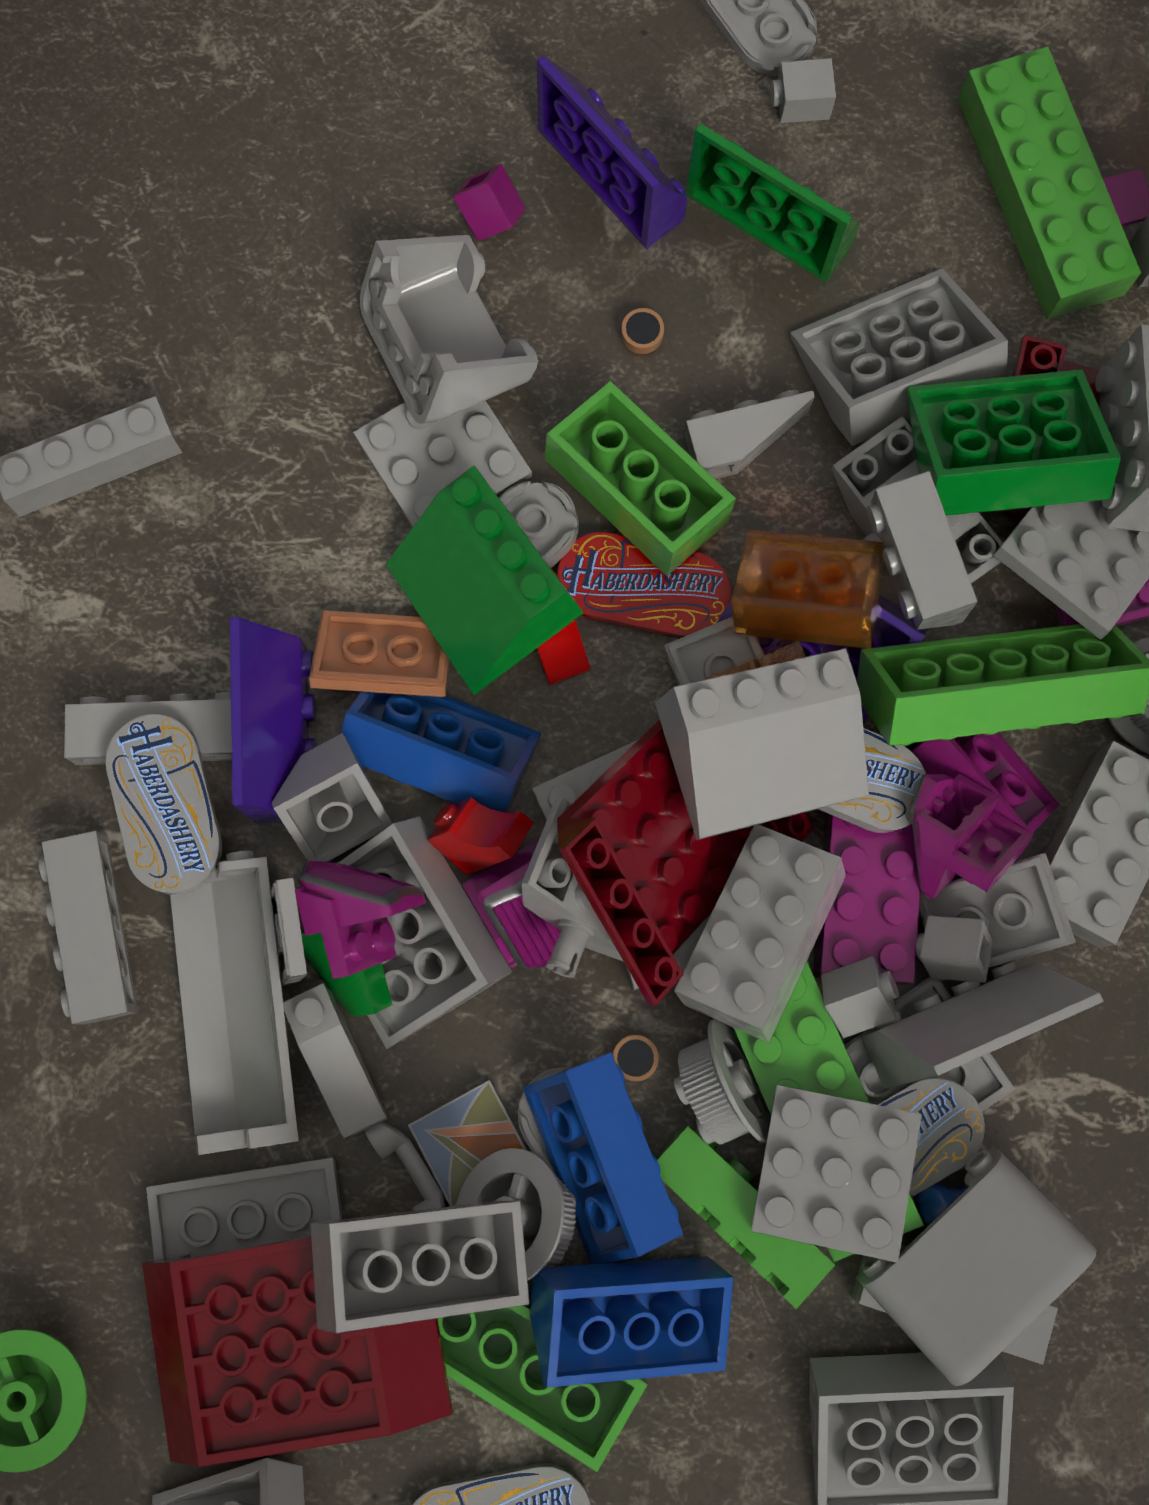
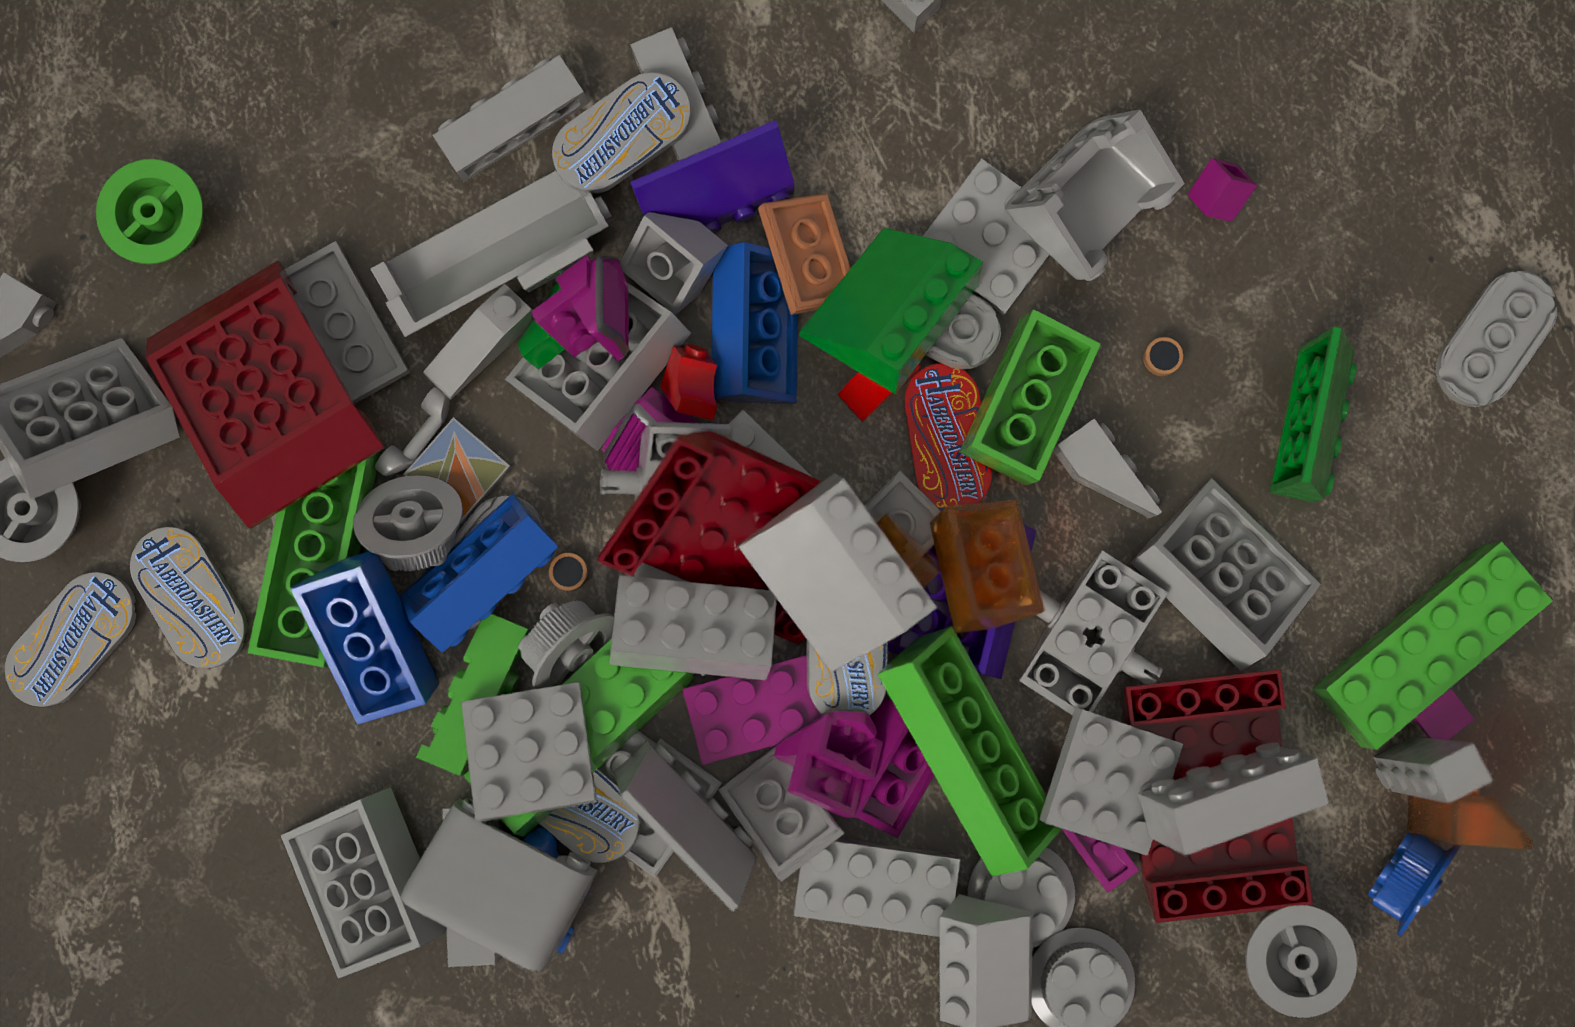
camera: 75 degrees right, 5 degrees up
(418, 1265) = (340, 457): light grey brick -> none
(606, 155) = (1302, 269): dark purple slope -> none
(804, 90) = (1430, 410): light grey brick -> none
(859, 996) = (673, 724): light grey brick -> none
(922, 552) = (1043, 641): light grey slope -> none
(955, 948) = (741, 788): light grey brick -> none
(1013, 442) = (1175, 687): green slope -> none

